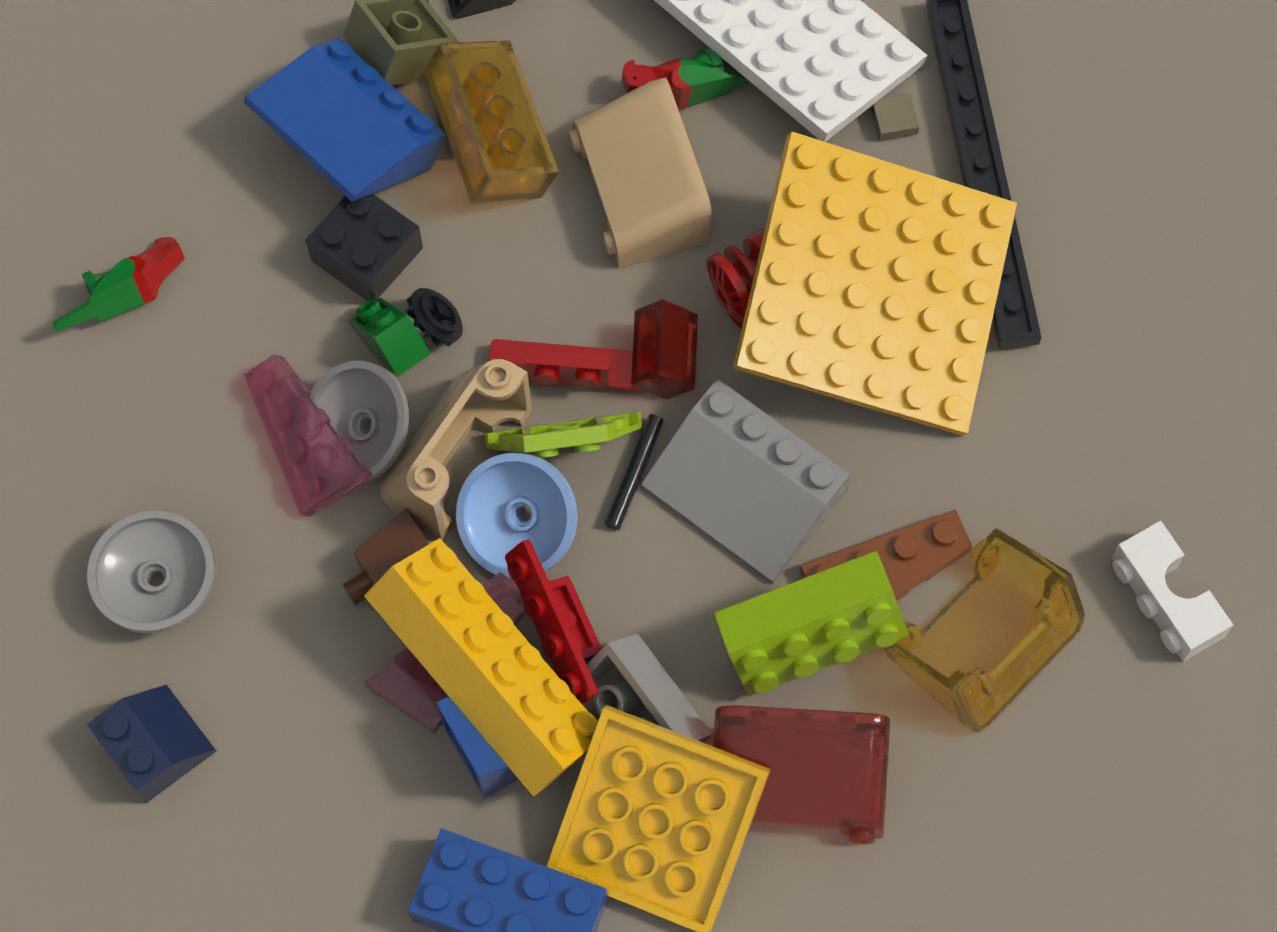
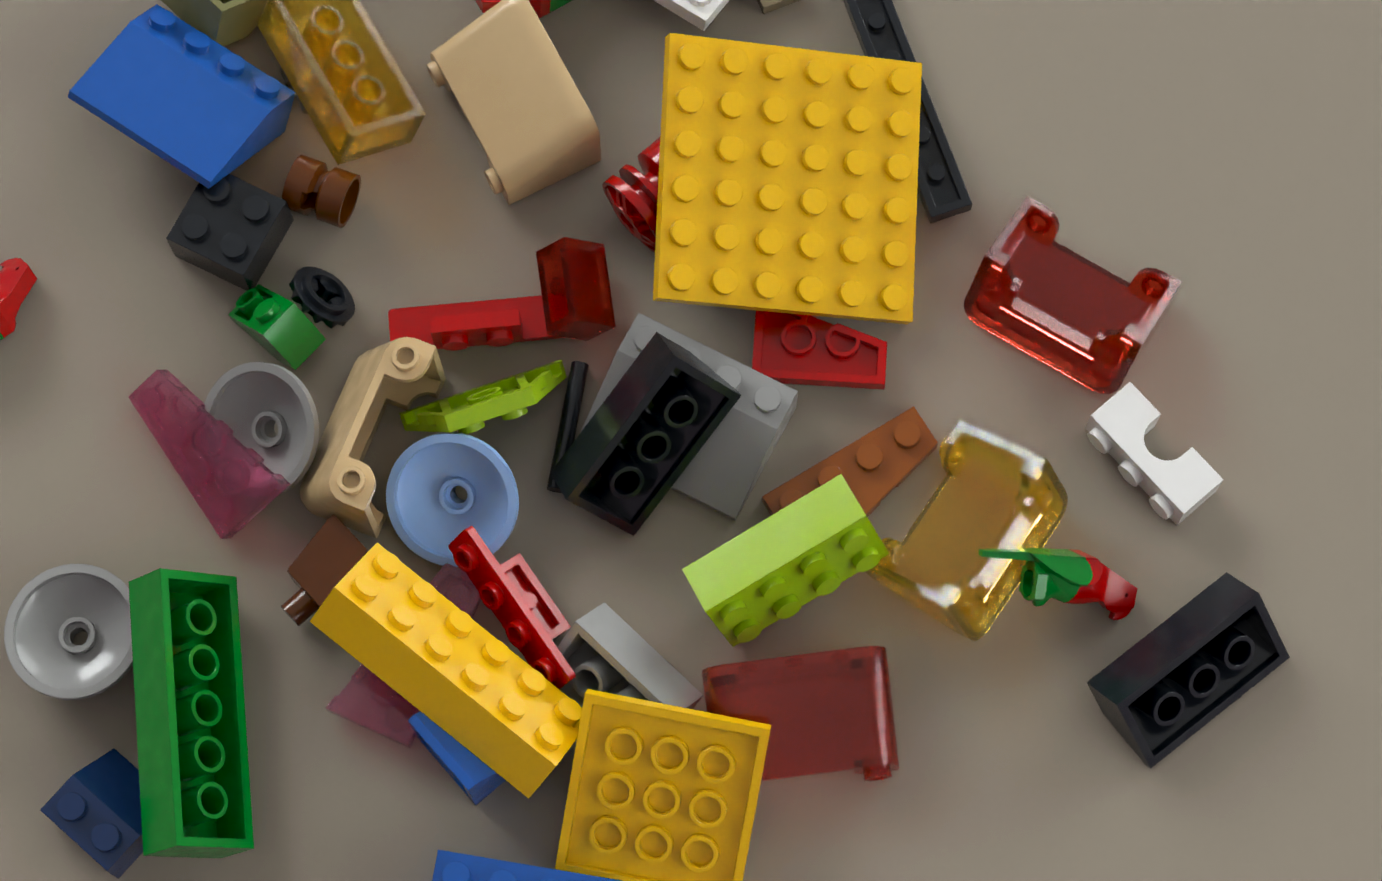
camera: 10 degrees left, 5 degrees up
(240, 665) = (190, 715): none -> green brick
(457, 227) = (325, 192): none -> reddish brown wheel
(702, 488) = (644, 435): none -> black slope
(874, 445) = (817, 352): none -> red wing
(1074, 690) = (1069, 578): none -> green animal
(1110, 442) = (1064, 304): none -> clear red windscreen
(1172, 794) = (1189, 668): none -> black slope

